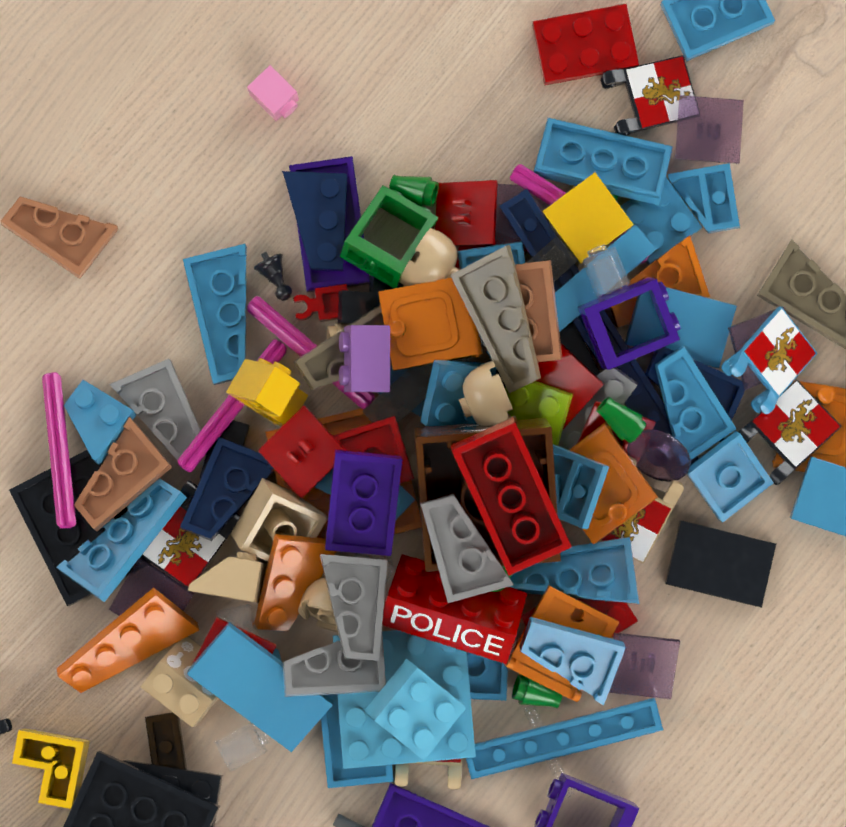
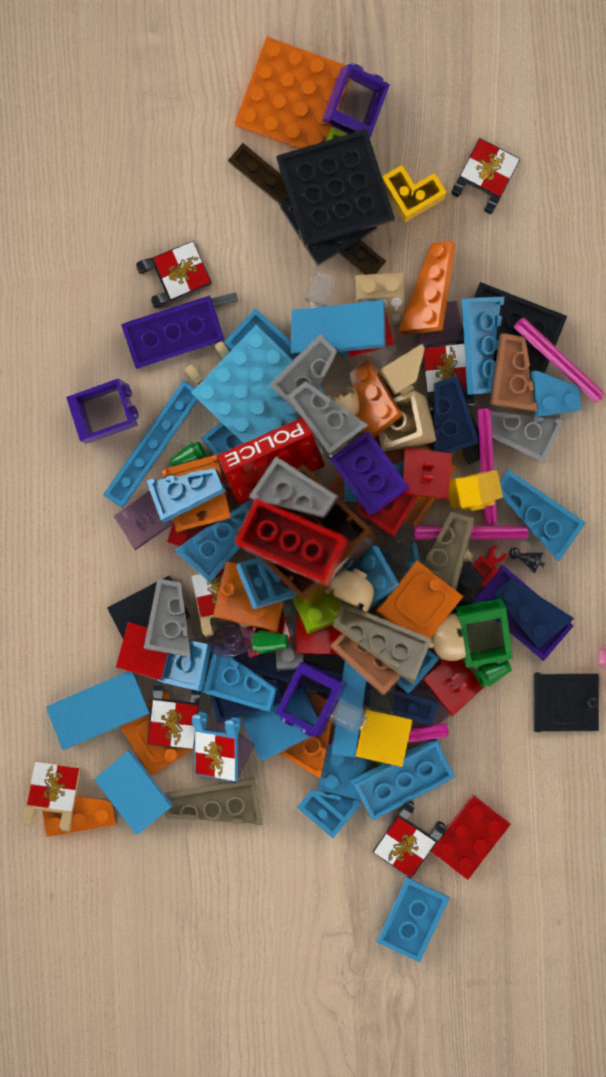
camera: 135 degrees right, 5 degrees up
(365, 358) = (437, 553): medium lavender brick -> none
(371, 98) = (561, 701): none -> black container
(415, 709) = (244, 387): medium azure brick -> none
(708, 535) = (167, 622): none -> light grey wing
(709, 129) = (360, 848): clear purple piece -> none
(760, 526) = (136, 658): none -> red piece

